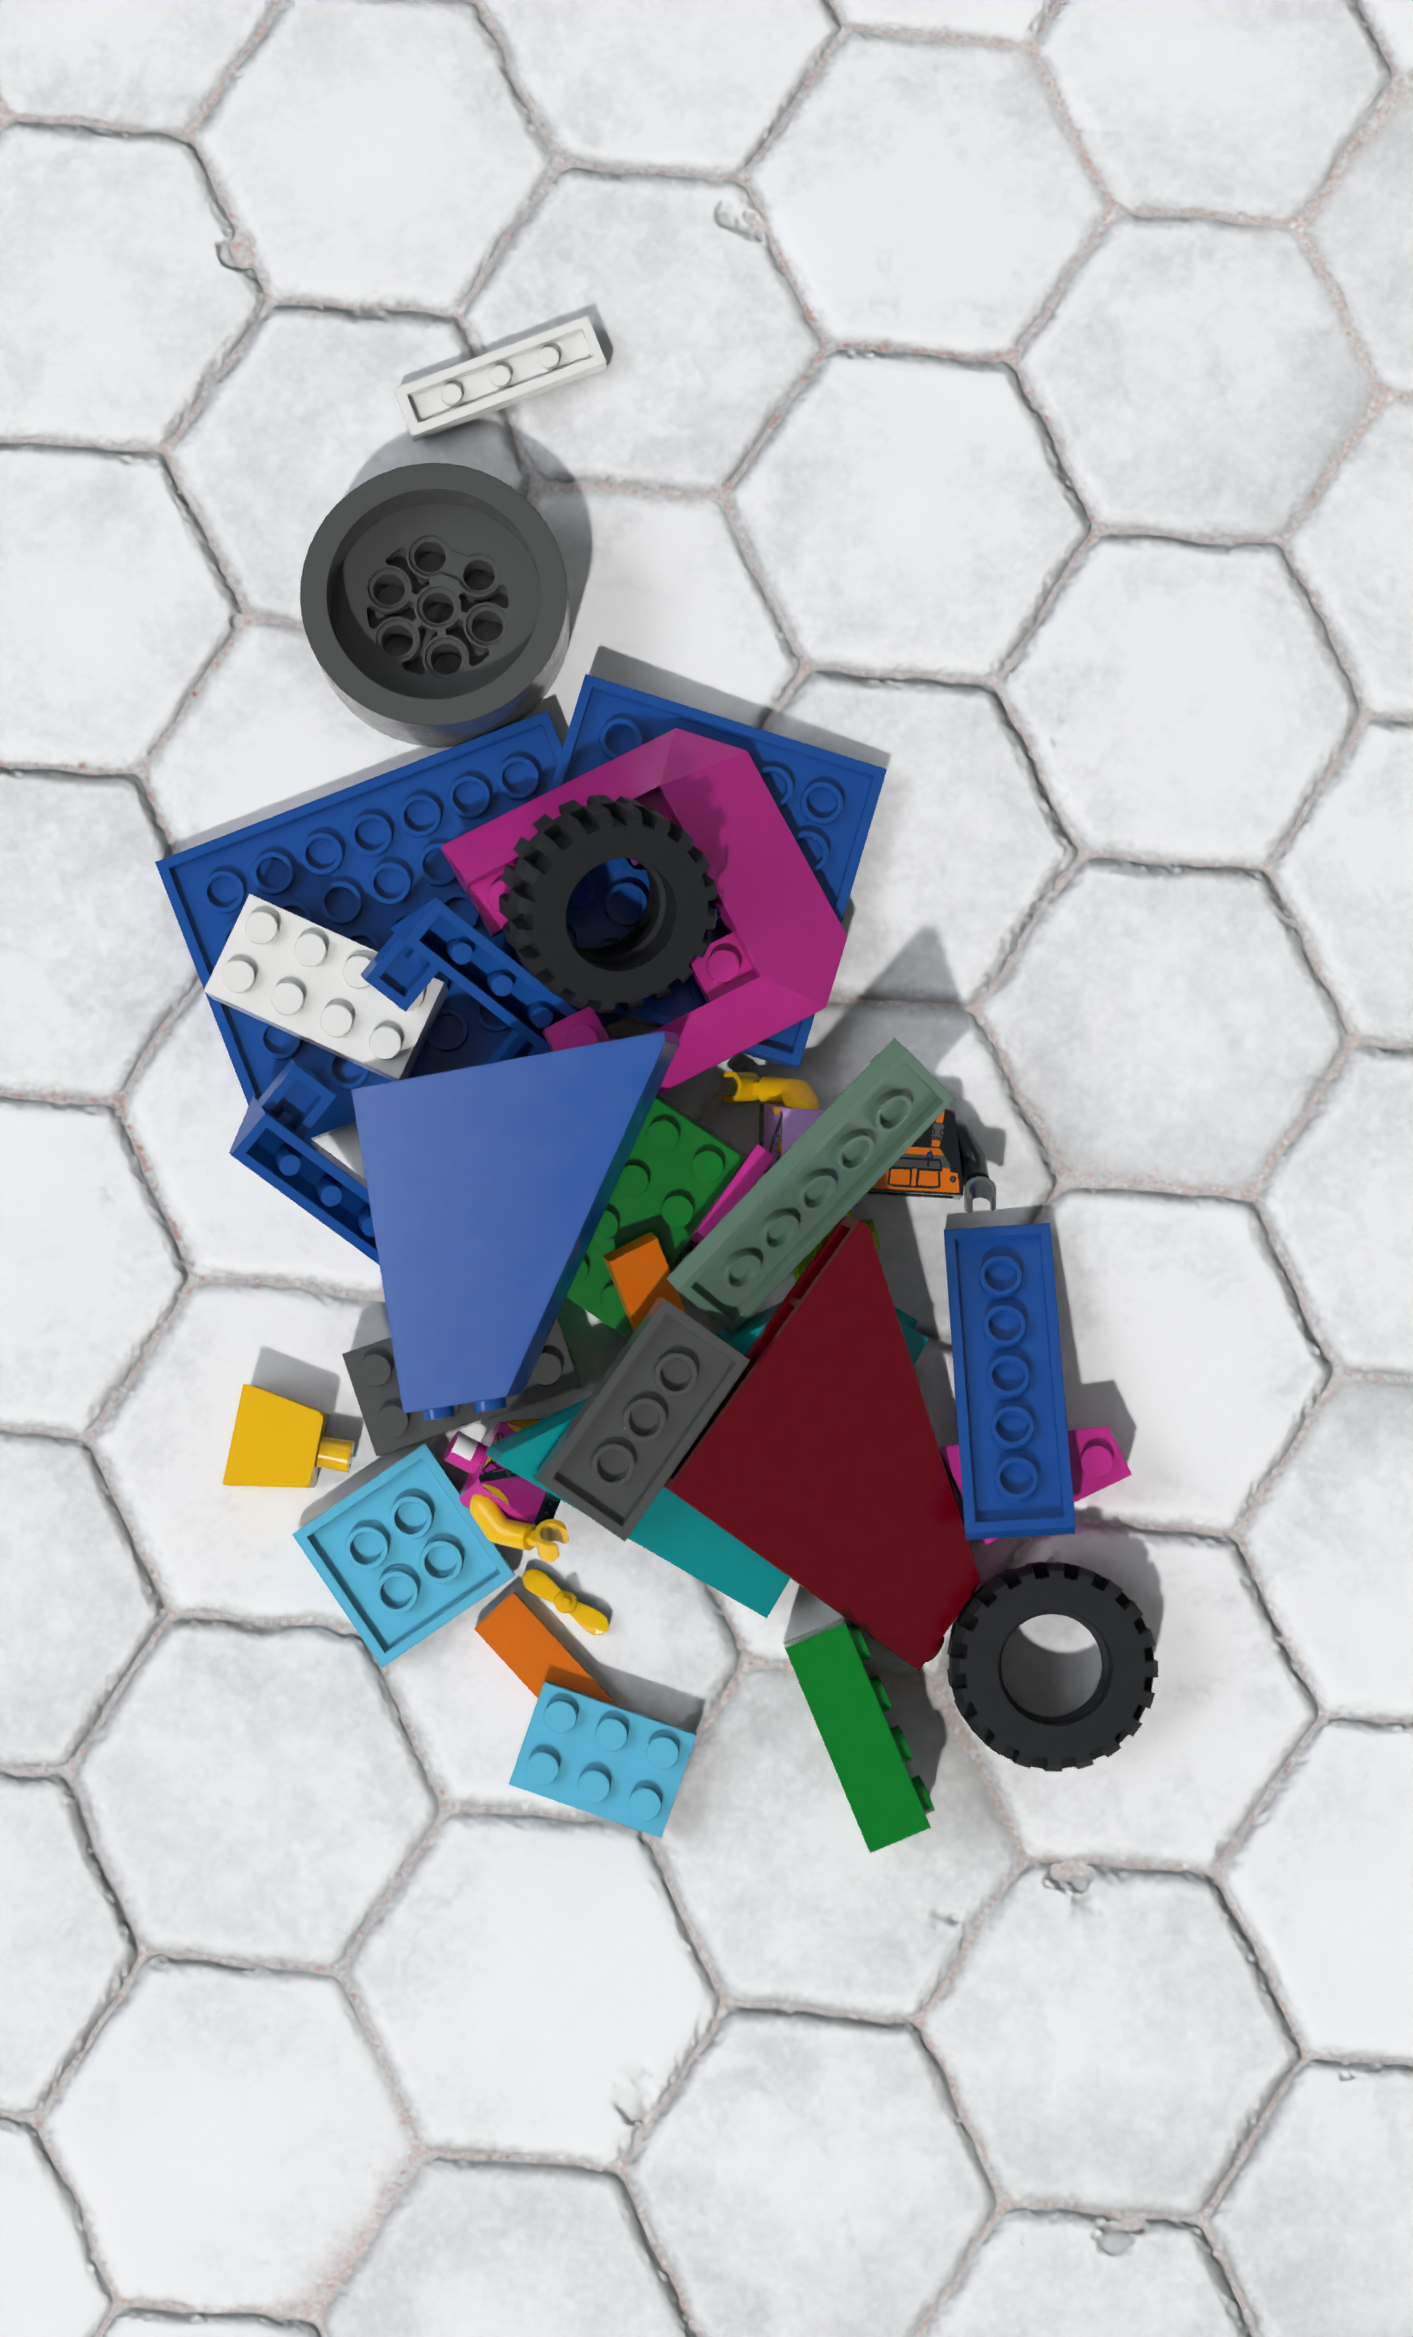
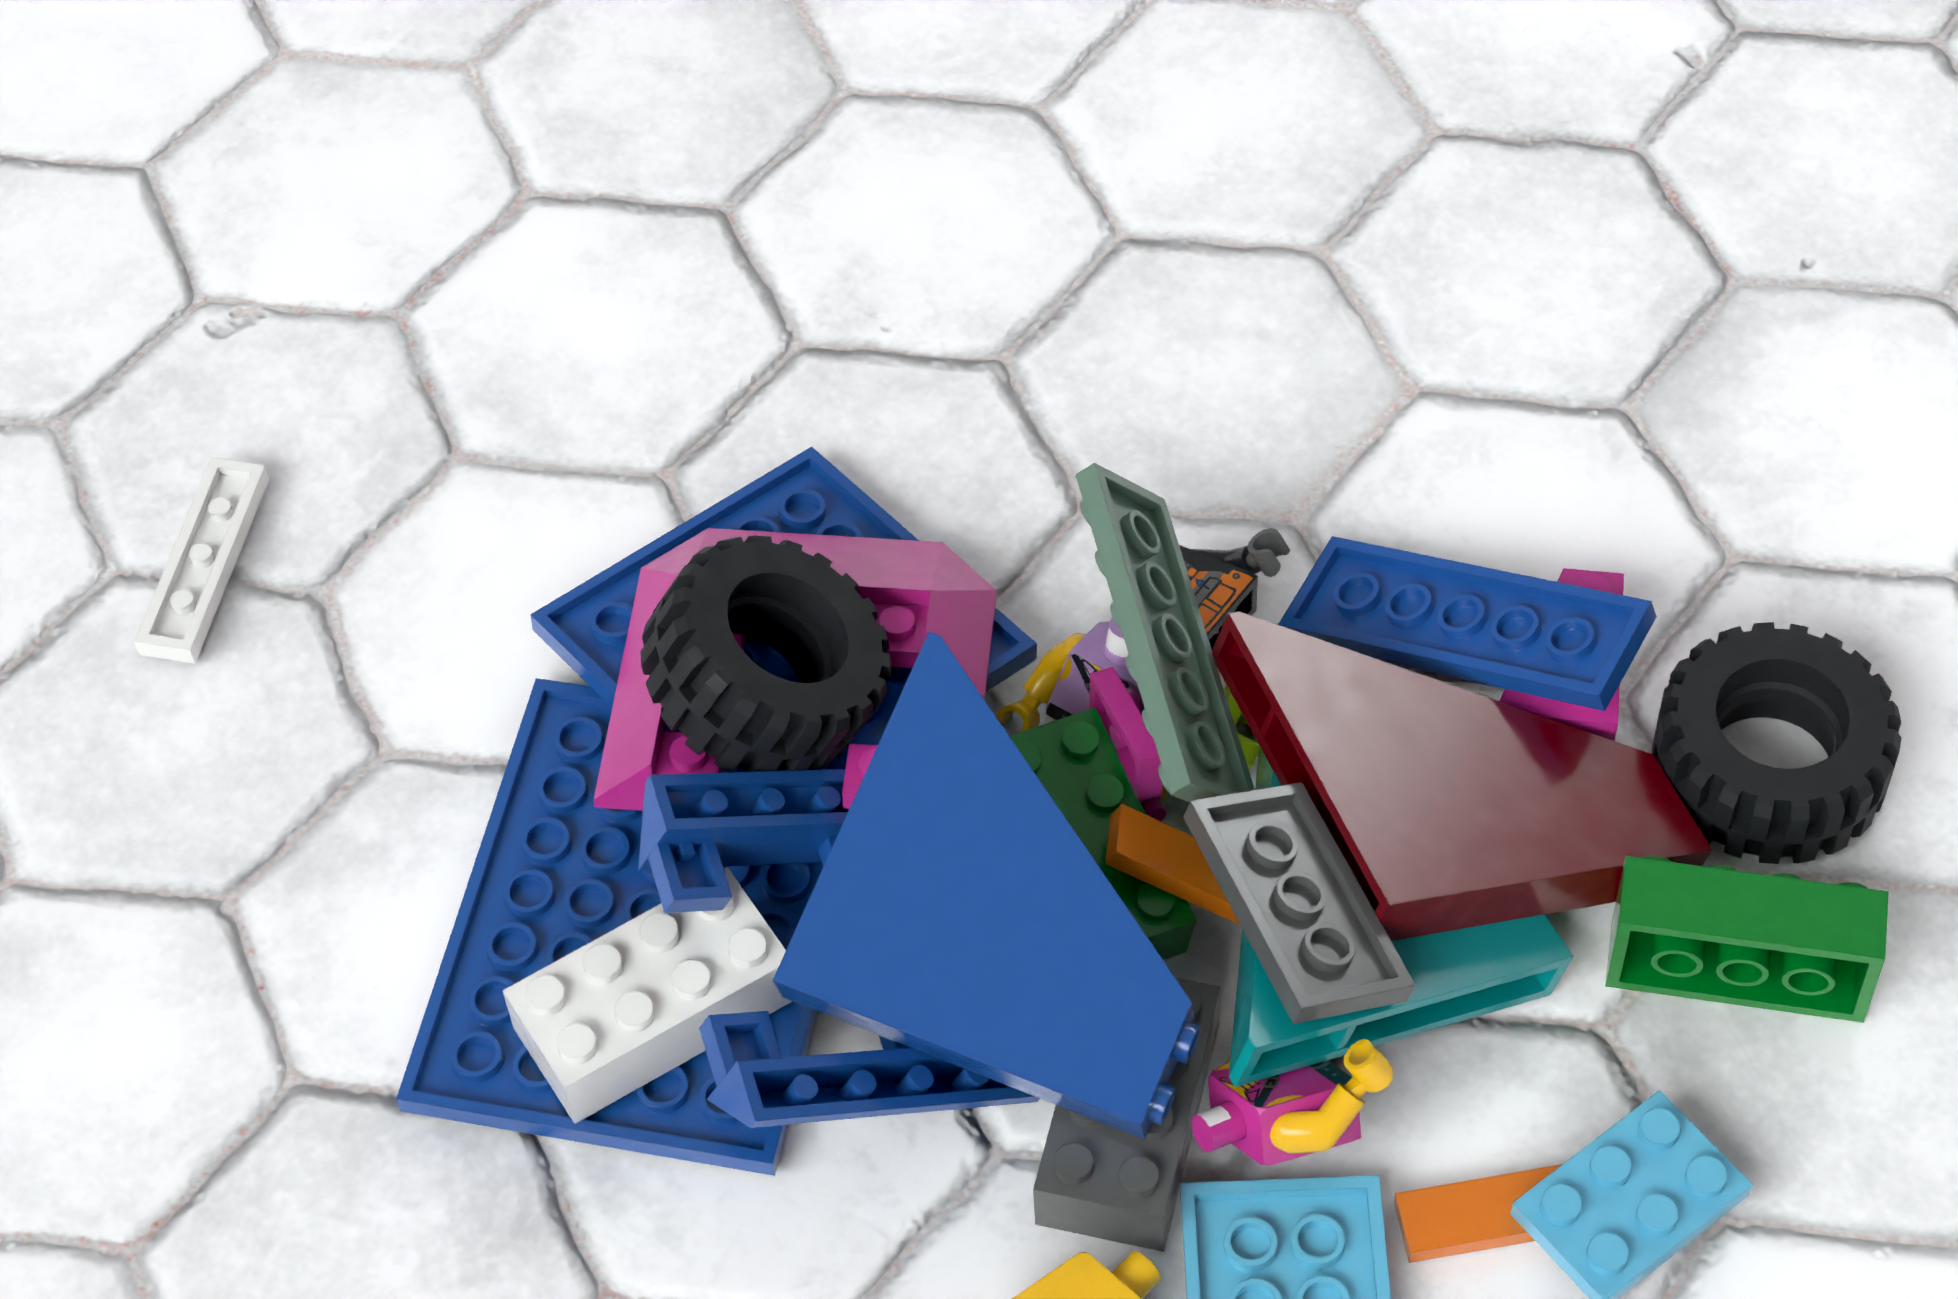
camera: 55 degrees left, 30 degrees down
(377, 542) = (363, 639): dark grey wheel -> none
(565, 1601) = (1437, 1155): yellow piece -> none

